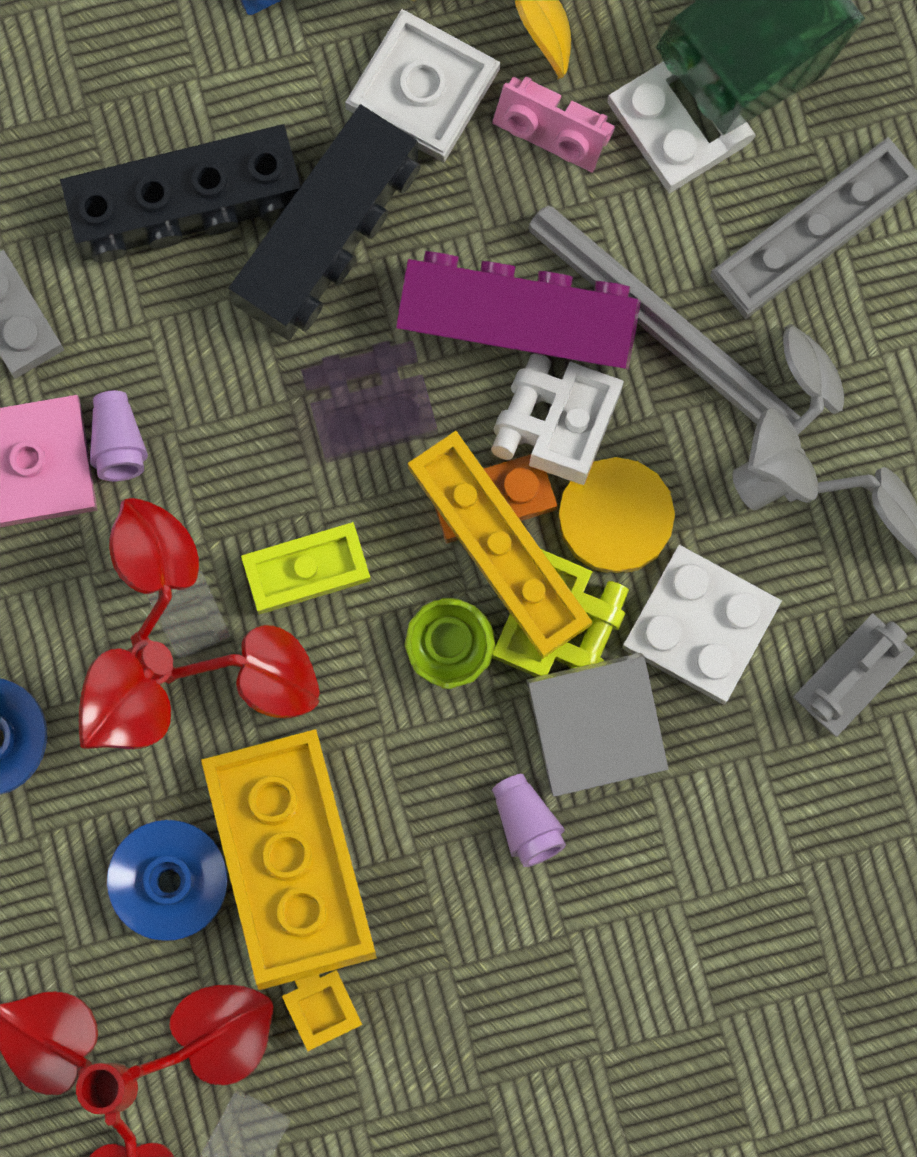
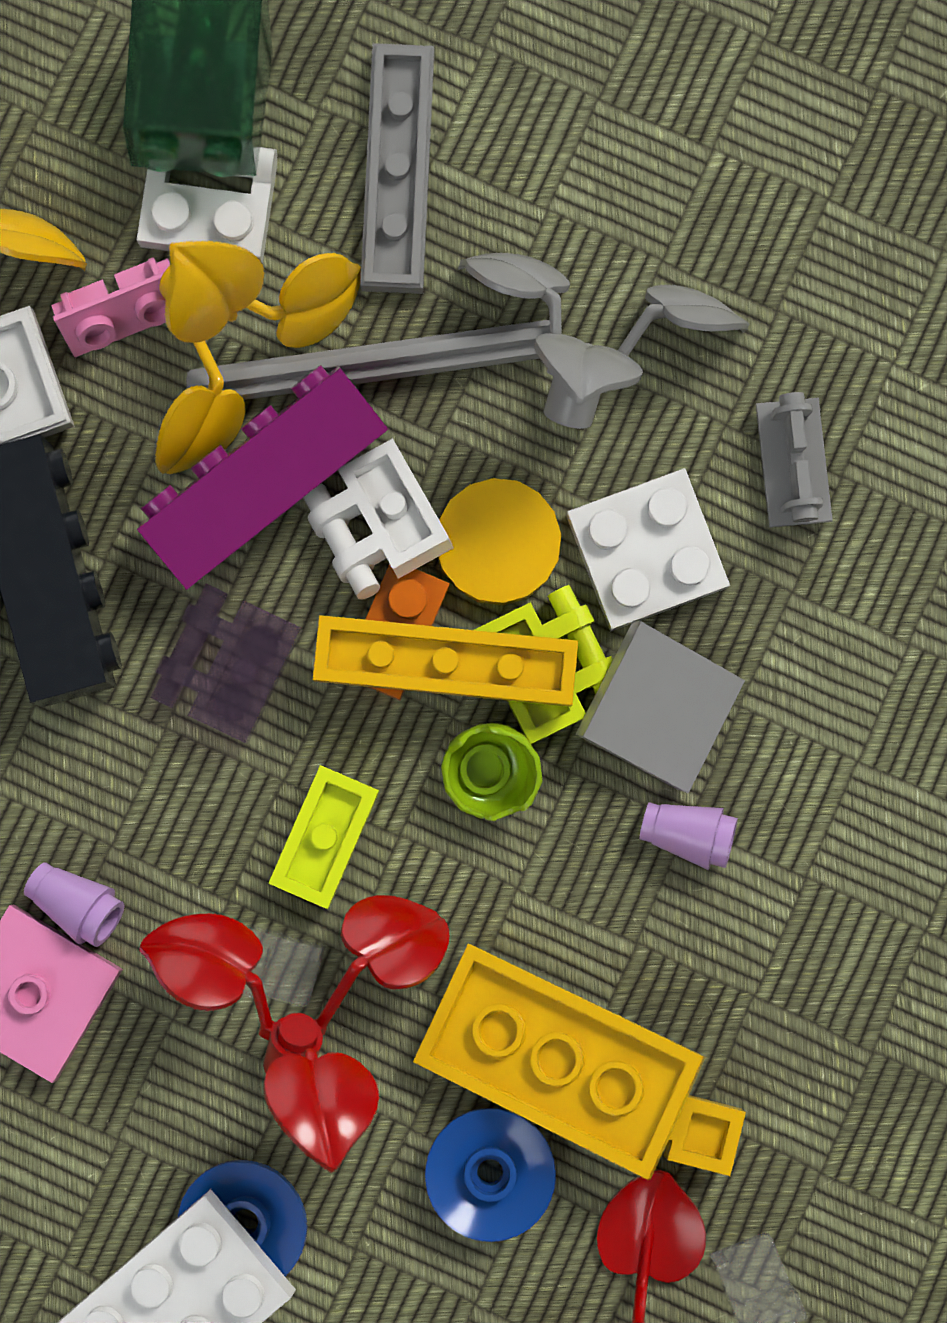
camera: 50 degrees left, 5 degrees up
(606, 163) = (203, 293): none -> yellow plant

